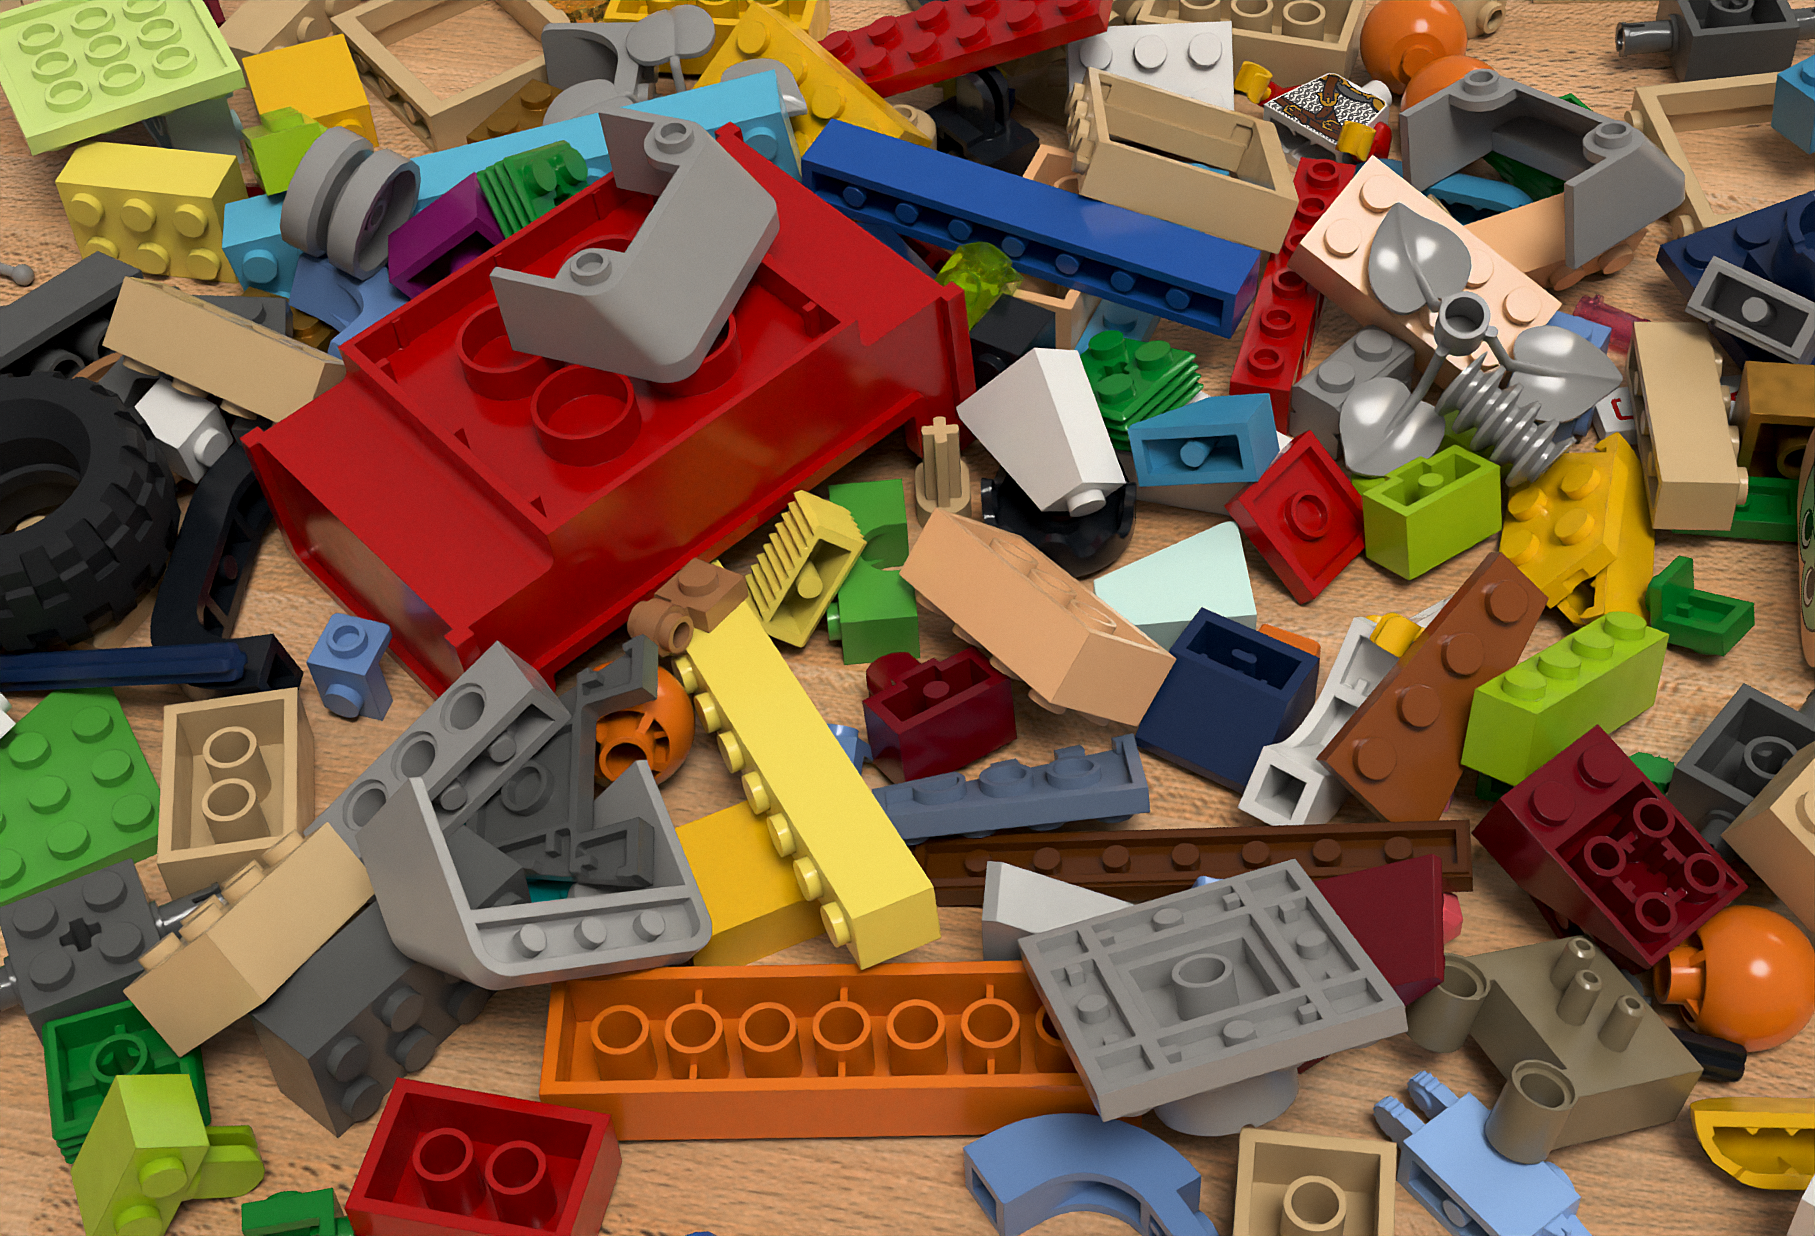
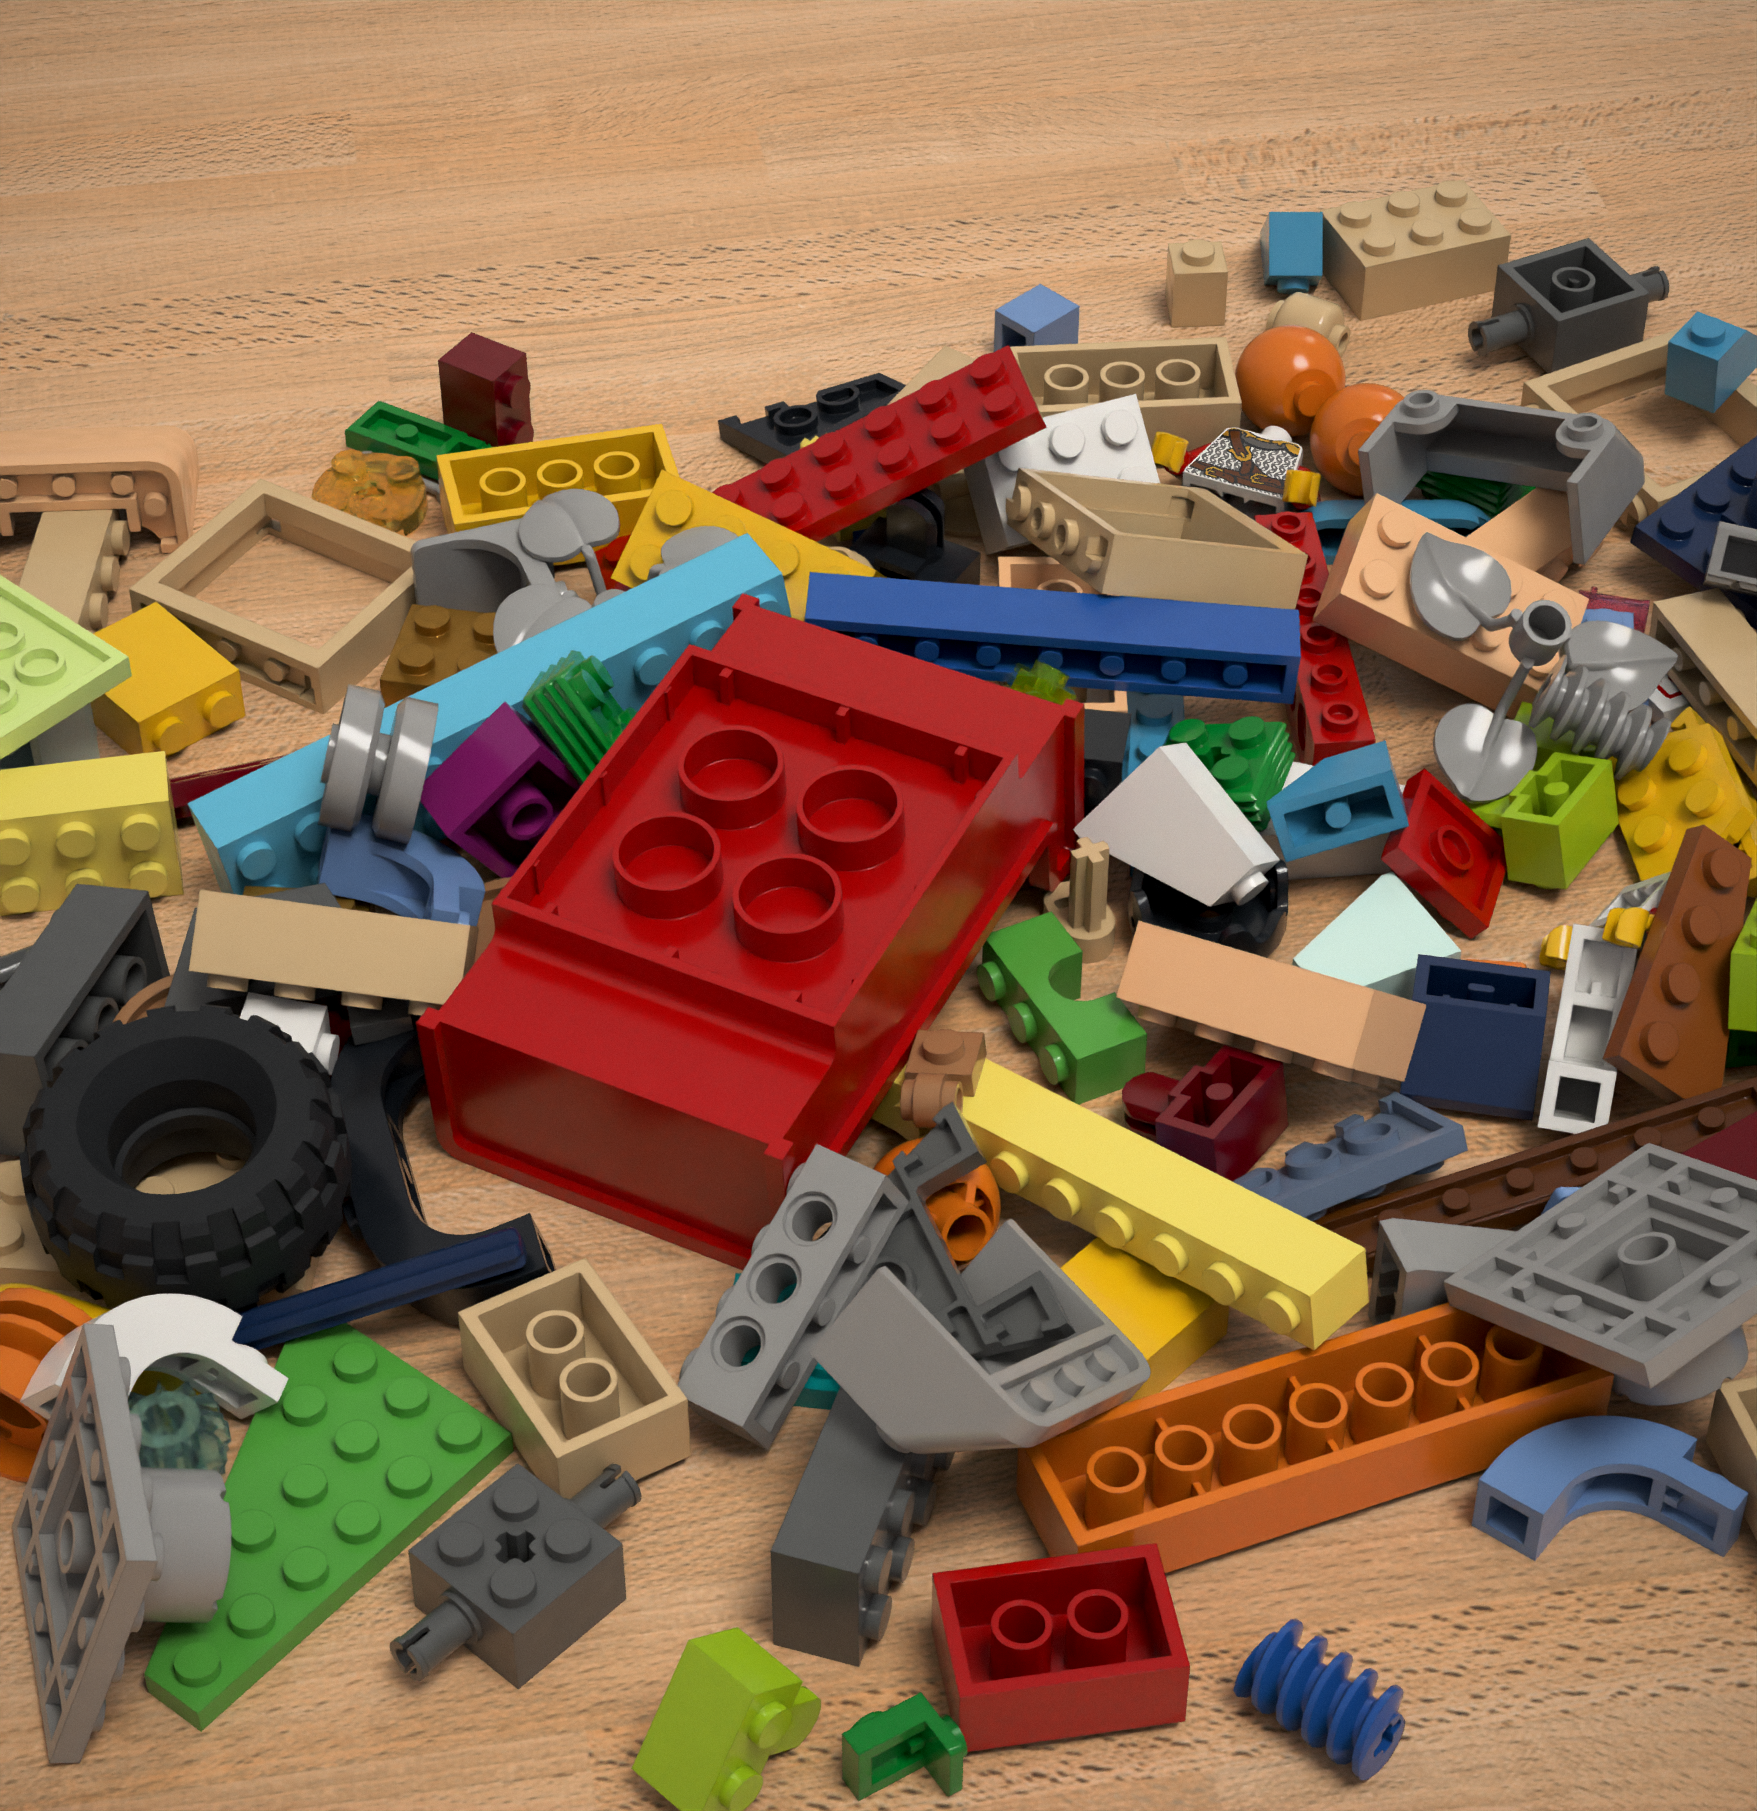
camera: 25 degrees left, 5 degrees down
(88, 1052) = (613, 1661): green brick -> none
(252, 940) = (712, 1493): tan brick -> none
(279, 146) = (218, 732): lime brick -> none
(349, 669) = (607, 1227): medium blue bracket -> none
(681, 275) = (799, 791): light grey windscreen -> none
(803, 567) = (1018, 1006): light yellow brick -> none
(1321, 393) = (1414, 712): light grey brick -> none

